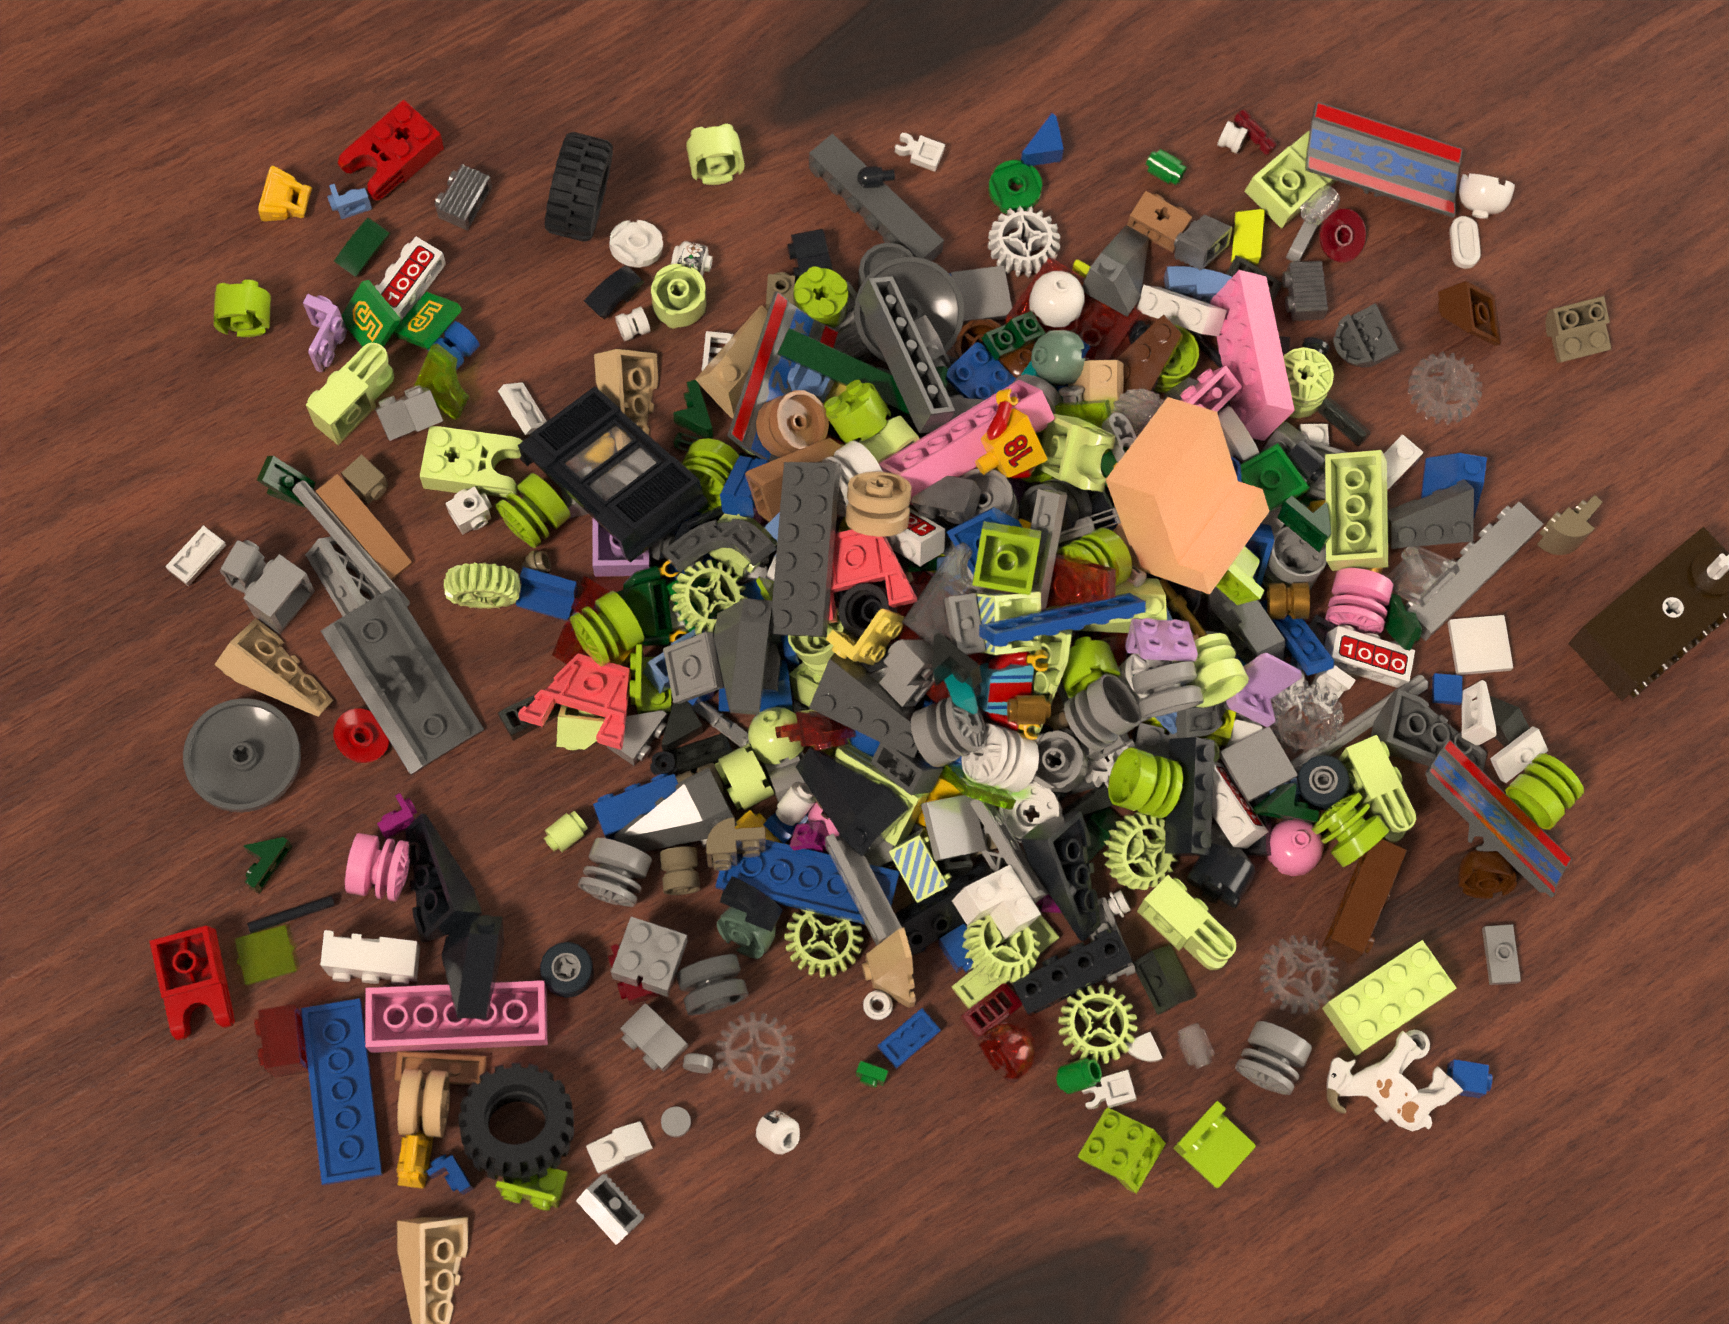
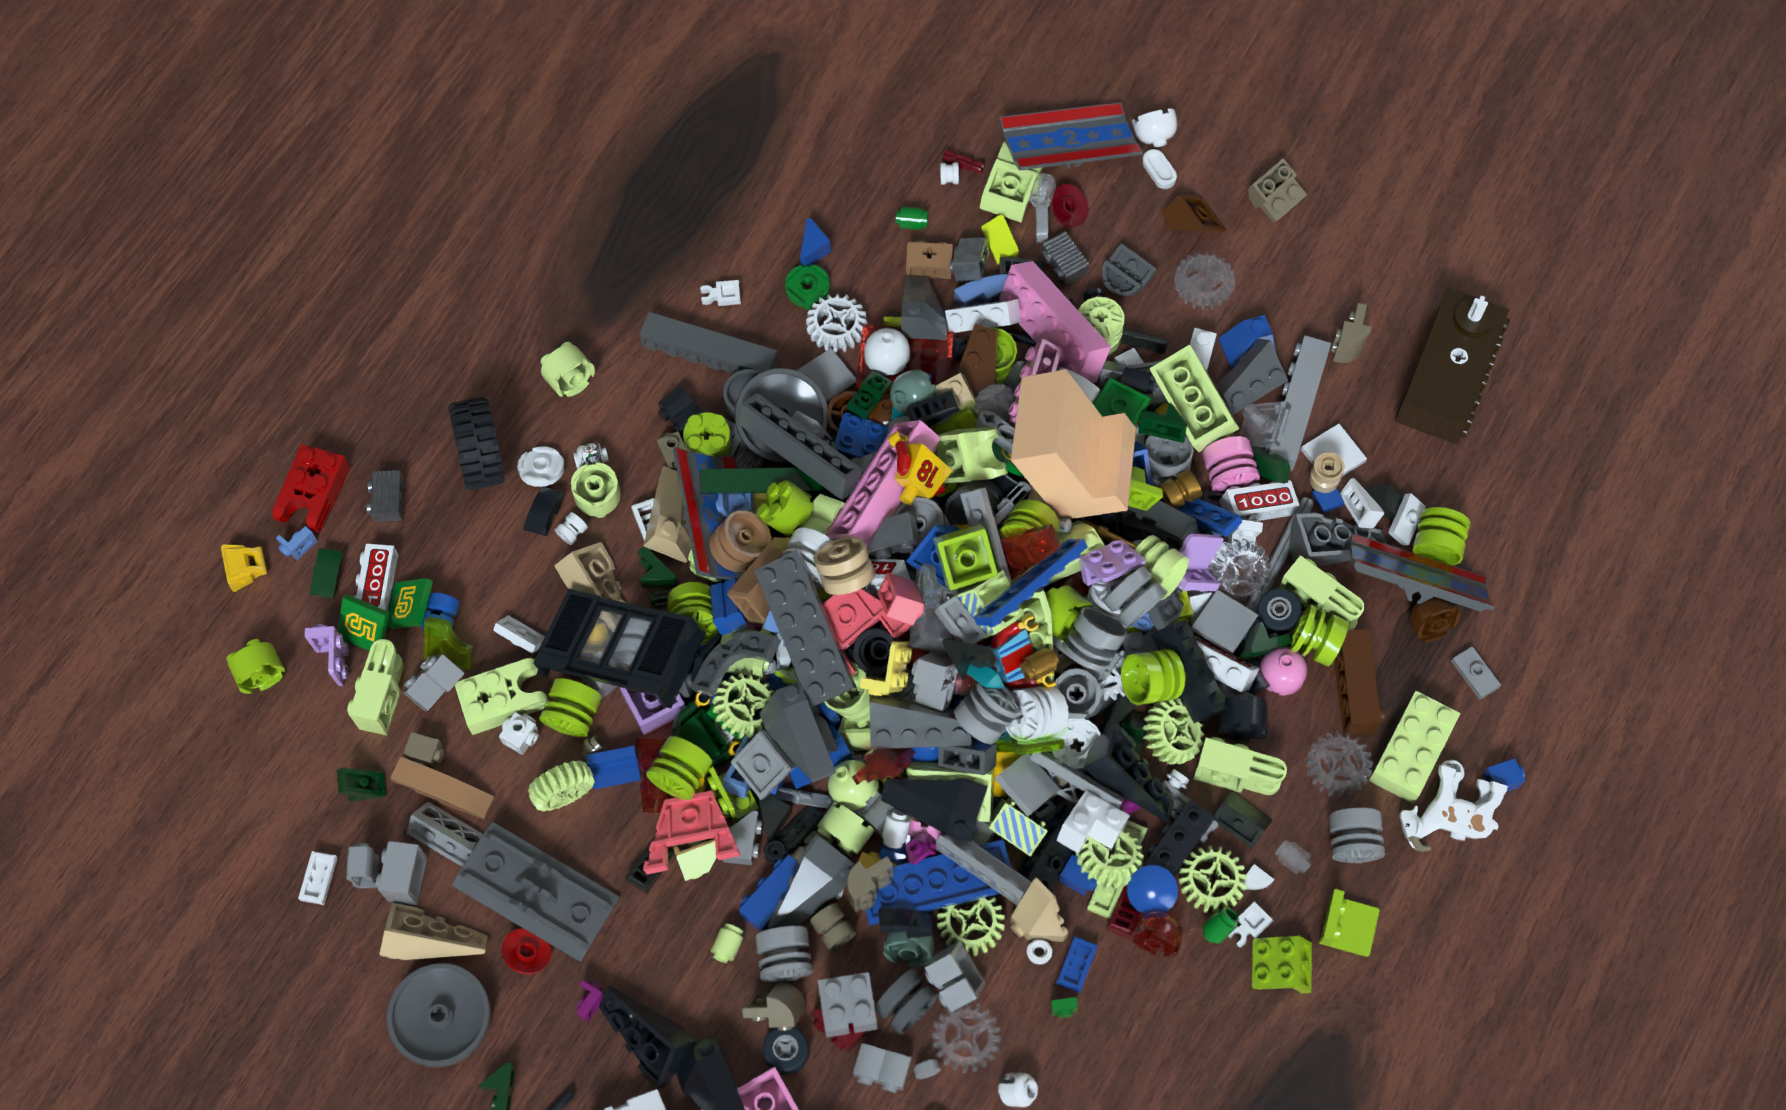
camera: 20 degrees left, 5 degrees down
(345, 539) = (431, 804): light grey axle -> none
(371, 866) = (594, 1047): bright pink wheel -> none
(582, 923) = (781, 1006): none -> dark tan brick
(774, 984) = (954, 976): none -> light grey piece
(874, 176) = (699, 328): black cylinder -> none
(917, 568) = (900, 599): none -> coral brick
(1026, 1002) = (1152, 889): none -> blue dish
(1050, 380) = (930, 404): none -> black slope
(1458, 660) = (1326, 472): none -> tan wheel

